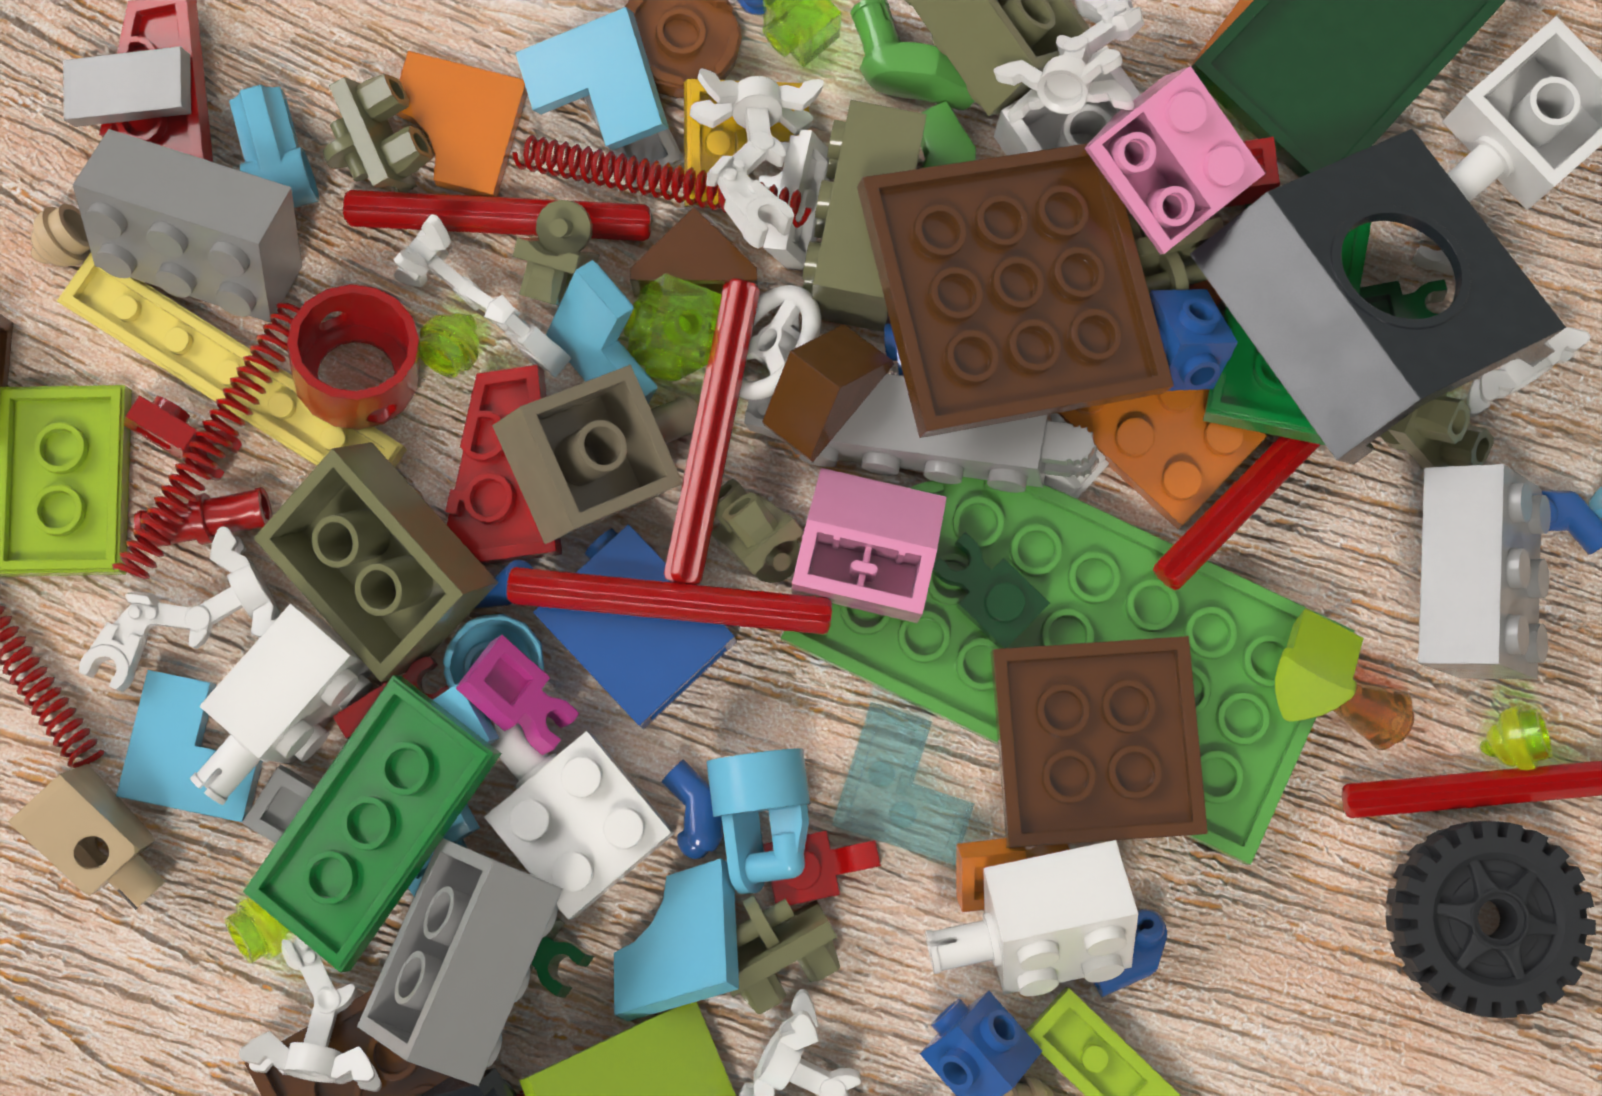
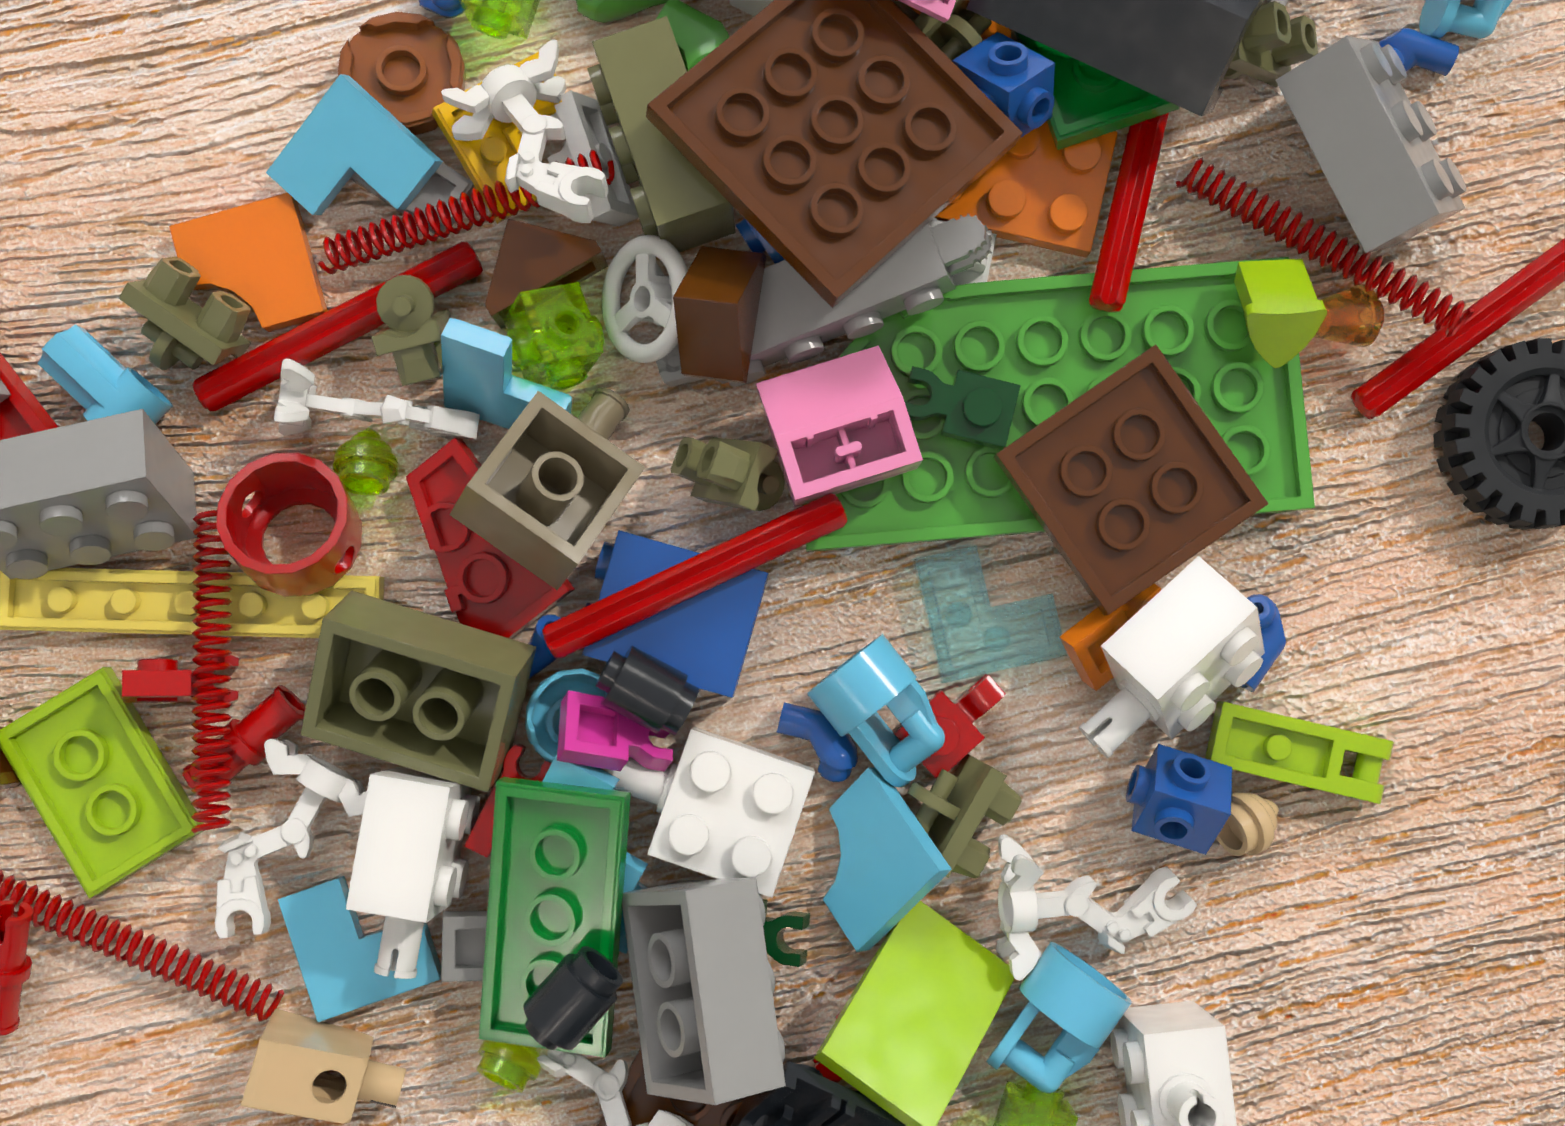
camera: 30 degrees left, 5 degrees up
(342, 901) = (572, 999): none -> black brick
(568, 674) = (646, 690): none -> black brick
(712, 433) = (643, 408): axle -> none
(1410, 688) = (1334, 257): none -> red piece
(1519, 738) = (1475, 268): clear neon green plate -> none

